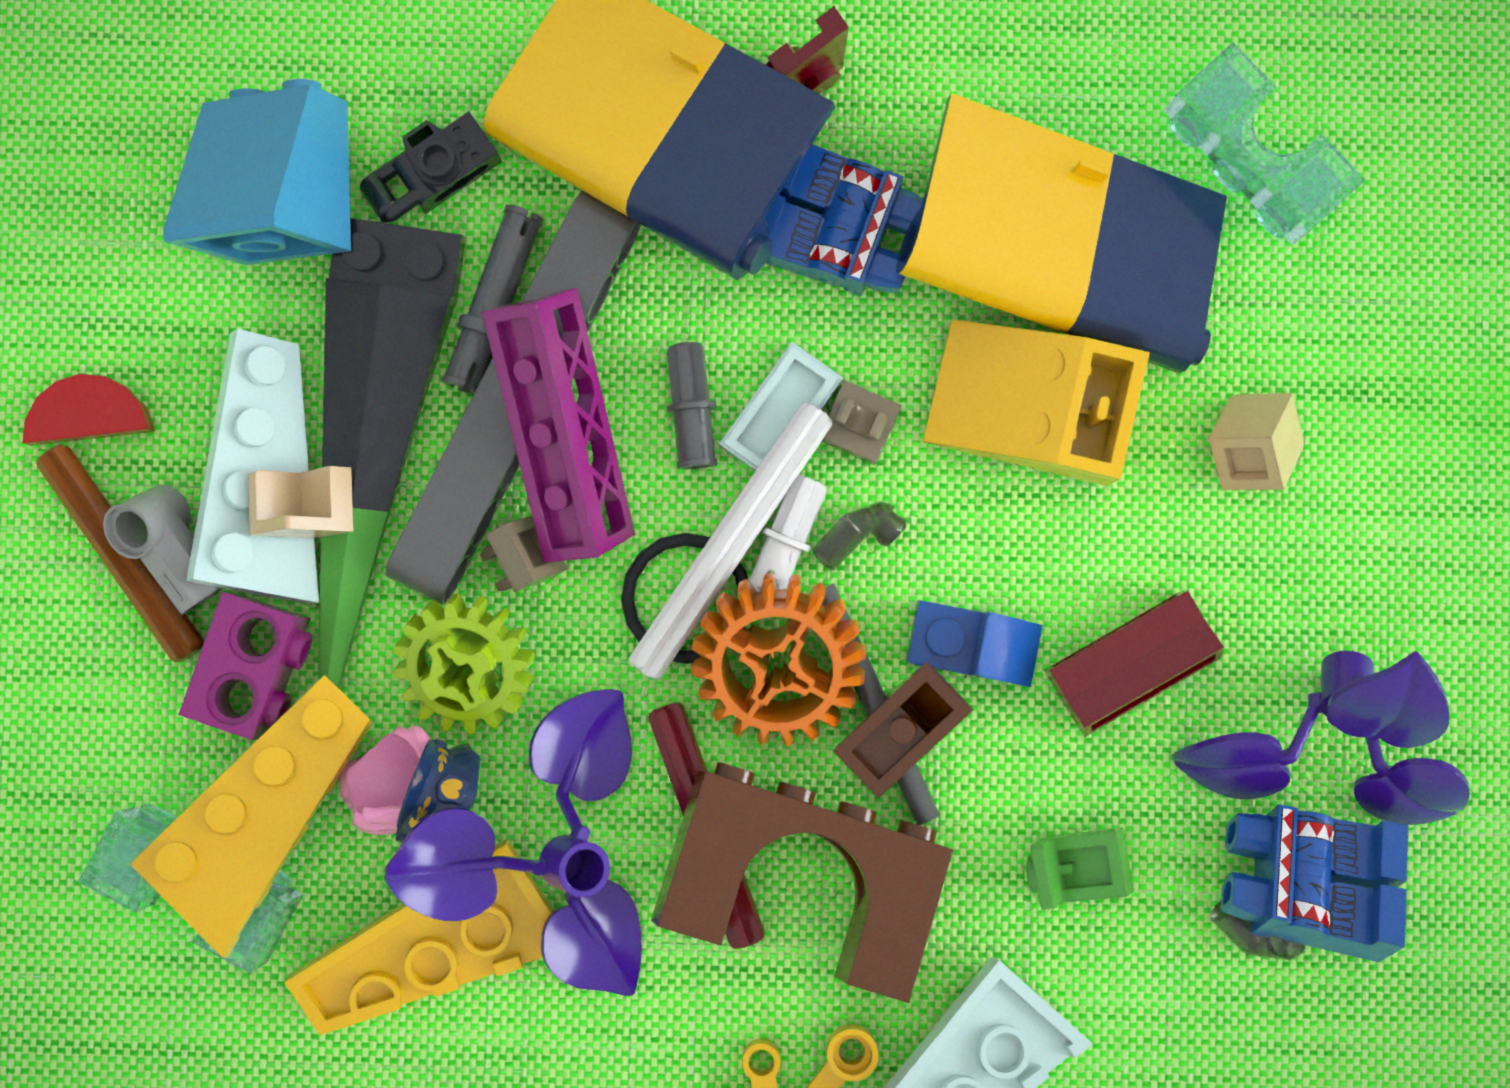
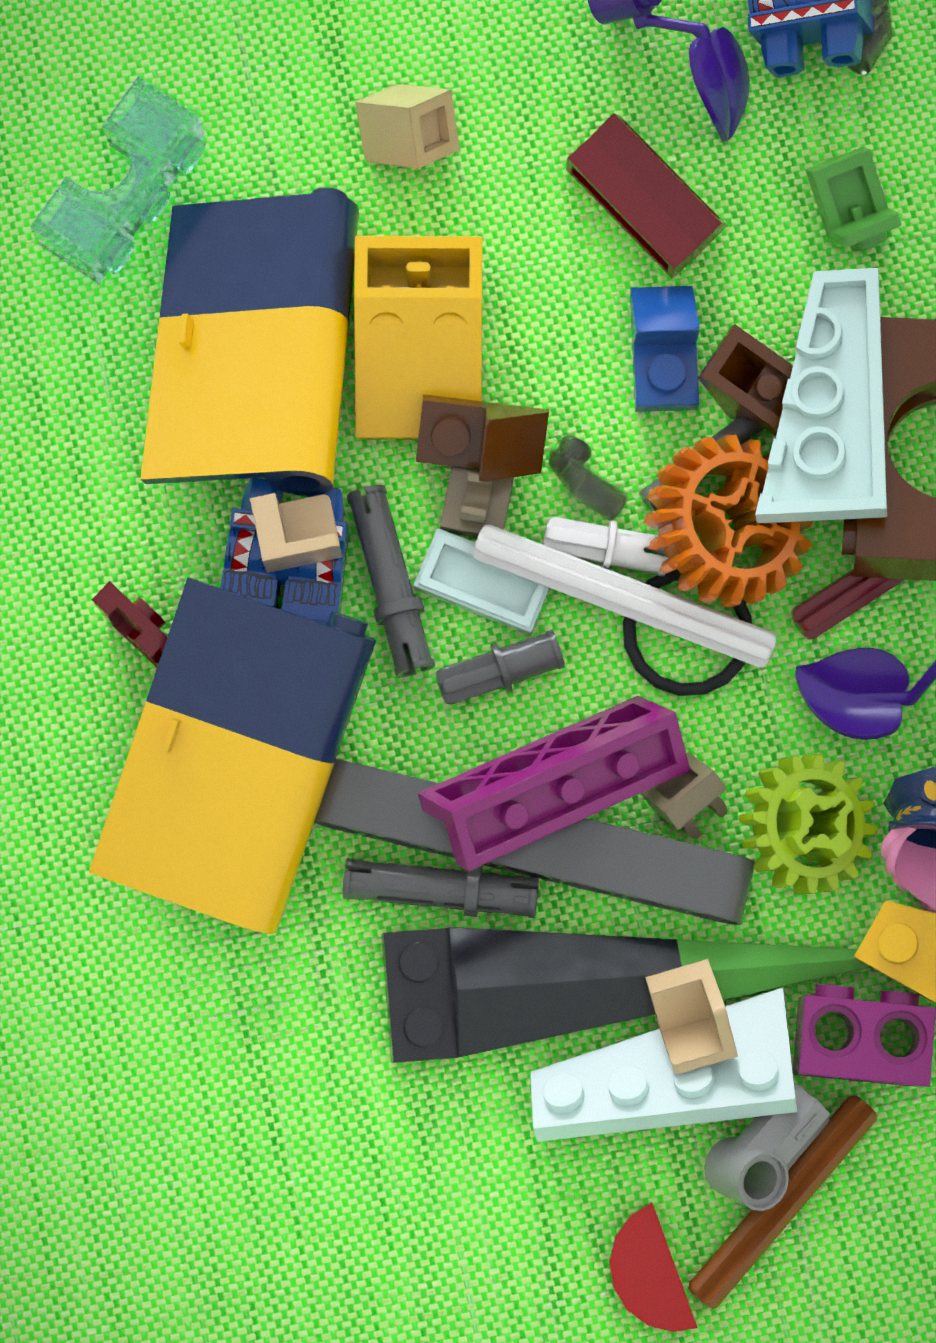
camera: 105 degrees left, 5 degrees down
(266, 177) = (371, 1134): dark azure slope -> none
(431, 167) = (325, 983): black piece -> none
(801, 320) = (391, 583): none -> dark grey pin
(841, 781) = (832, 416): none -> light aqua wing
(863, 225) = (295, 531): none -> tan panel
(920, 445) = (482, 436): none -> reddish brown slope

